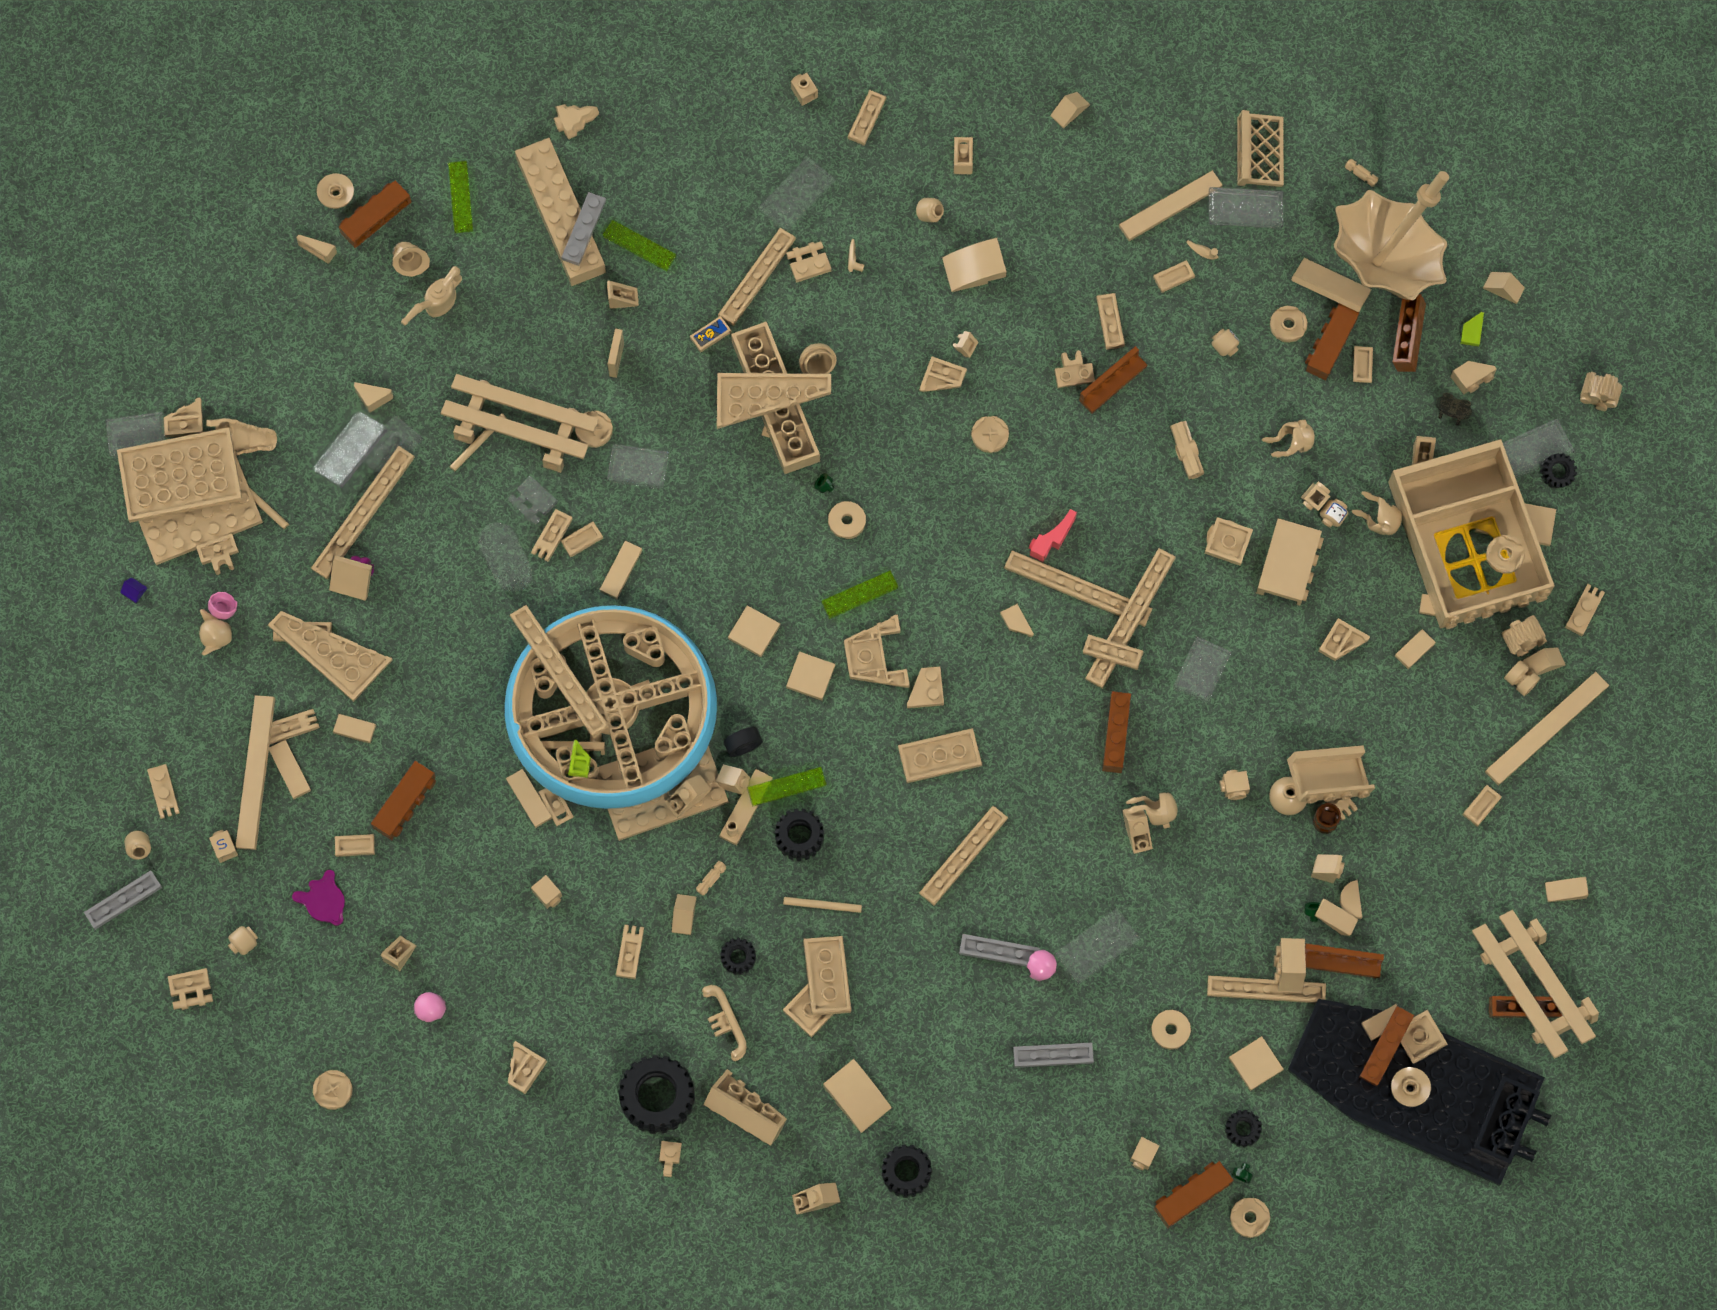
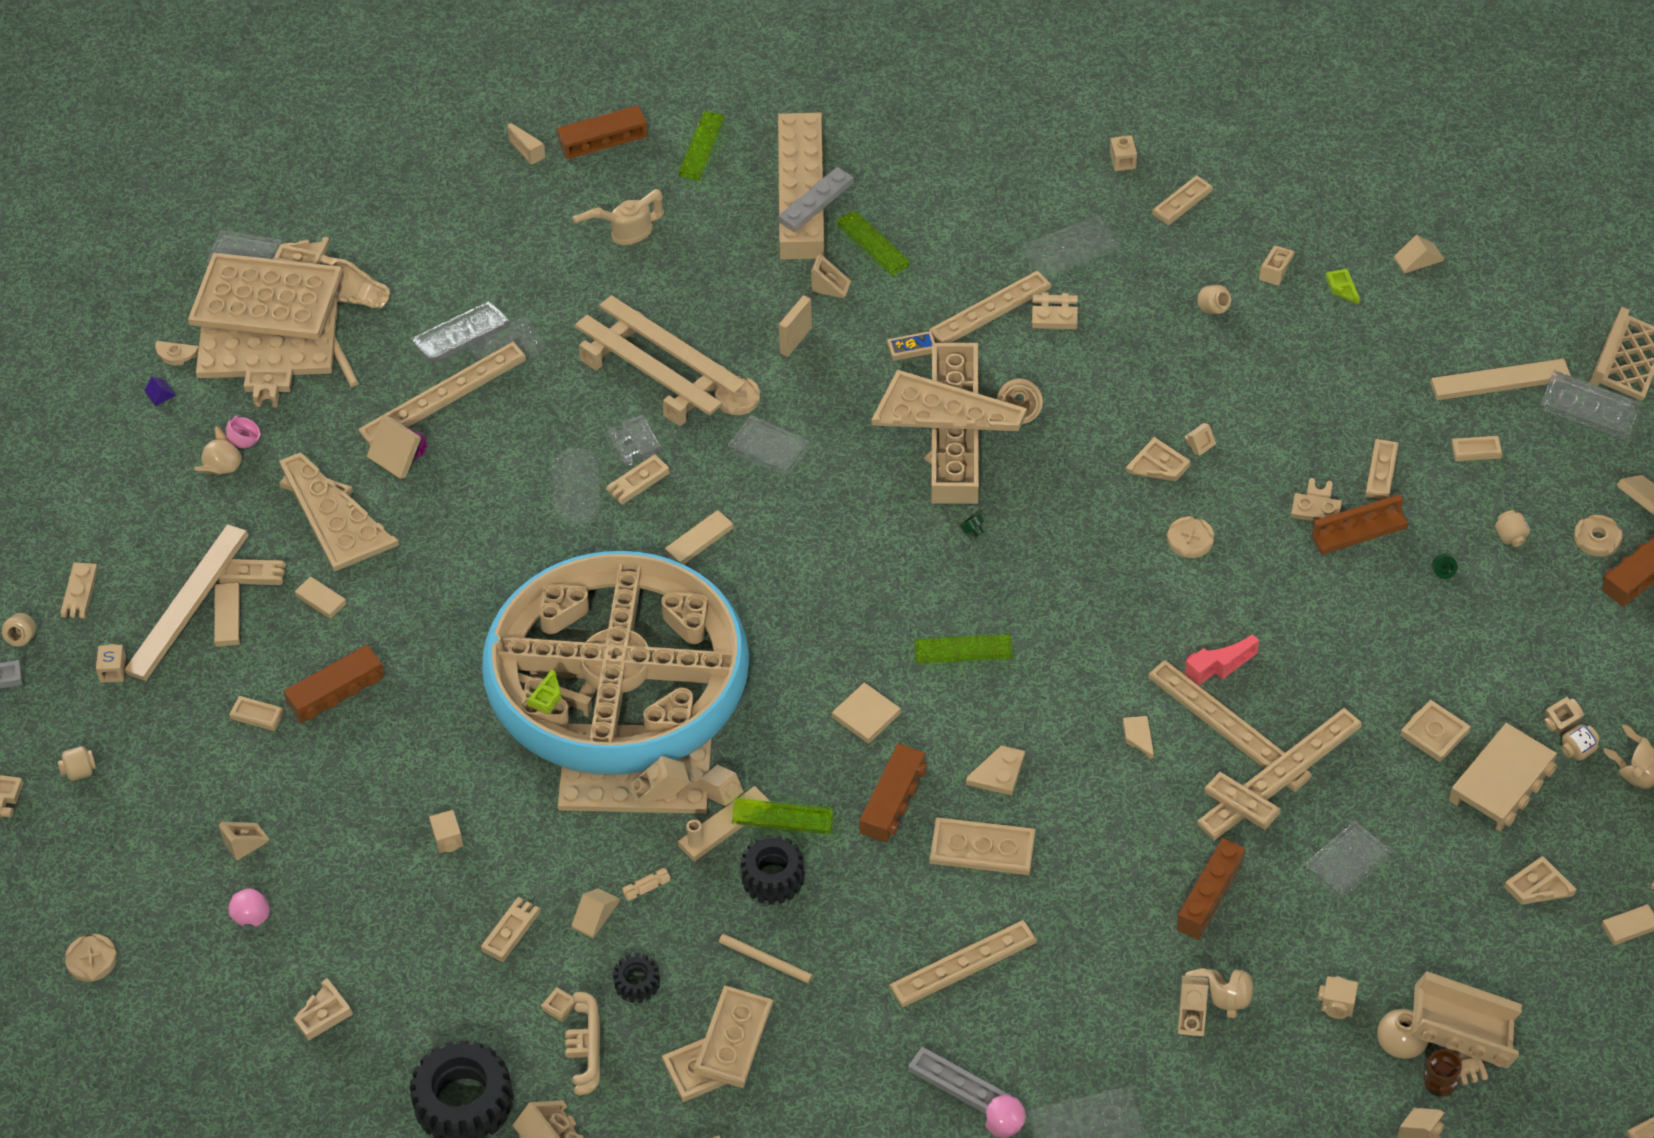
camera: 25 degrees right, 20 degrees down
(128, 549) = (175, 353): none -> tan plate
(323, 900) = (191, 757): magenta tile -> none
(333, 183) = (571, 100): tan dish -> none
(373, 396) = (513, 291): tan slope -> none
(409, 259) = (616, 181): tan piece -> none
(472, 448) = (593, 373): tan bar -> none
(529, 798) = (477, 731): tan tile -> none
(555, 806) = (504, 748): tan slope -> none
(559, 671) = (572, 600): tan tile -> none
(573, 118) = (858, 110): tan rock -> none
(581, 539) = (670, 495): tan tile -> none
(691, 996) = (559, 1004): none -> tan tile
(743, 741) = (752, 739): black tyre -> none
(754, 631) = (821, 646): tan tile -> none
(850, 530) = (982, 558): tan tile -> none
(852, 264) = (1103, 327): tan bar -> none
(859, 737) = (892, 793): none -> dark orange brick
(867, 658) = (941, 714): tan wing -> none
(974, 265) = (1244, 367): tan slope -> none
(1020, 157) = (1342, 285): none -> lime tile
(1187, 394) = (1444, 566): none -> dark green tile
(1187, 450) = (1421, 621): tan piece -> none
(1204, 251) = (1525, 437): tan bar -> none
(1302, 438) = (1568, 647): tan hair -> none

